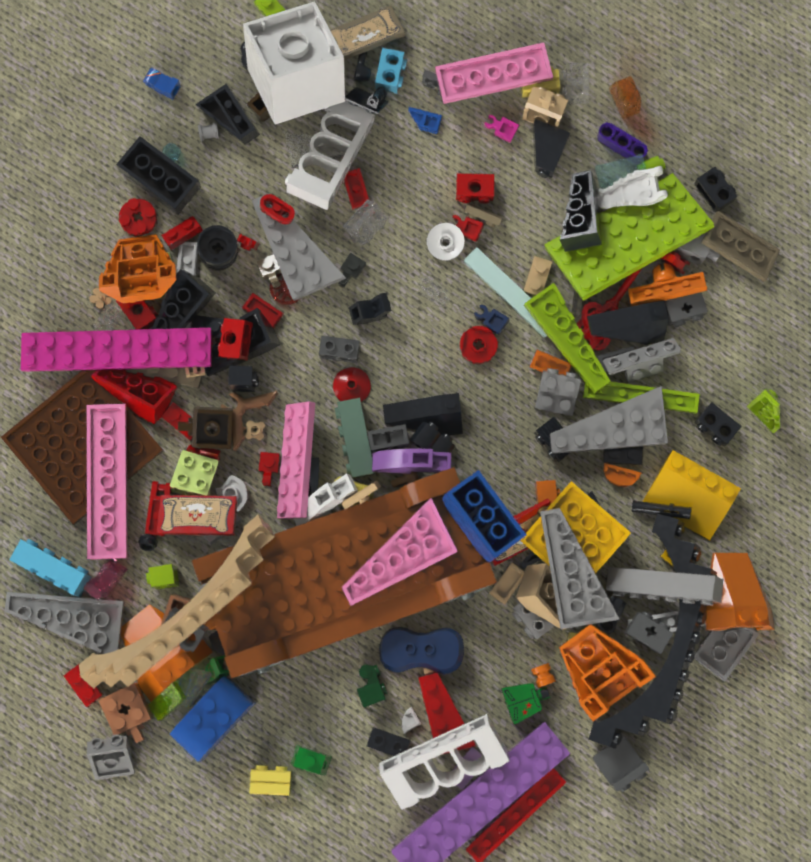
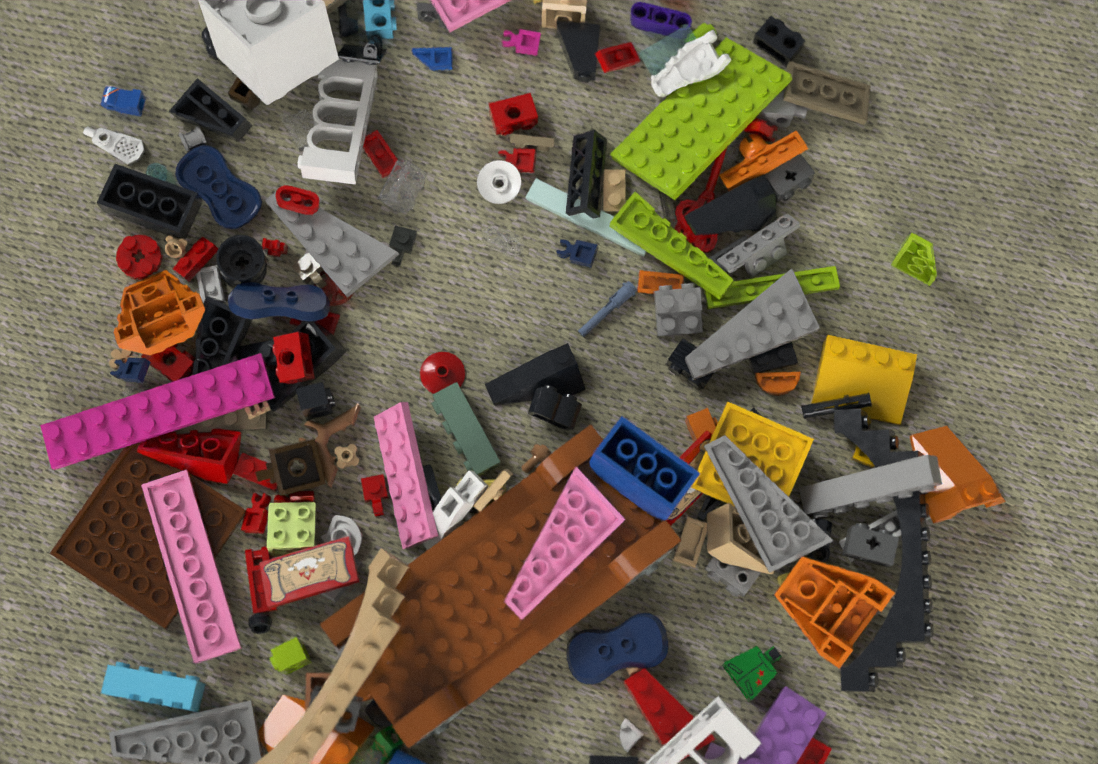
camera: 20 degrees left, 5 degrees down
(105, 310) = (132, 371): none -> dark blue plate
(106, 579) = (224, 681): clear pink brick -> none
(145, 115) = (114, 142): none -> white piece
(169, 218) = (174, 251): none -> tan plate
(169, 457) = (257, 516): none -> red plate
(221, 284) = (258, 301): none -> dark blue plate
(223, 190) = (228, 198): none -> dark blue plate
(339, 349) = (416, 335): dark grey brick -> none
(370, 310) = (438, 282): black brick -> none
(373, 690) = (576, 713): dark green brick -> none
(388, 438) = (504, 419): dark grey brick -> none
(410, 460) = (537, 434): medium lavender slope -> none
(487, 339) = (561, 278): red plate -> none
(510, 369) = (615, 301): none -> sand blue pin
(522, 256) = (591, 171): none -> black fence
(543, 675) = (765, 634): orange wheel -> none
(575, 163) = (617, 57): none -> red plate
(582, 217) = (644, 113): black wedge -> none
(620, 765) = (887, 710): dark grey bracket -> none
(720, 420) = (868, 287): black brick -> none
(724, 649) = (958, 540): light grey plate -> none

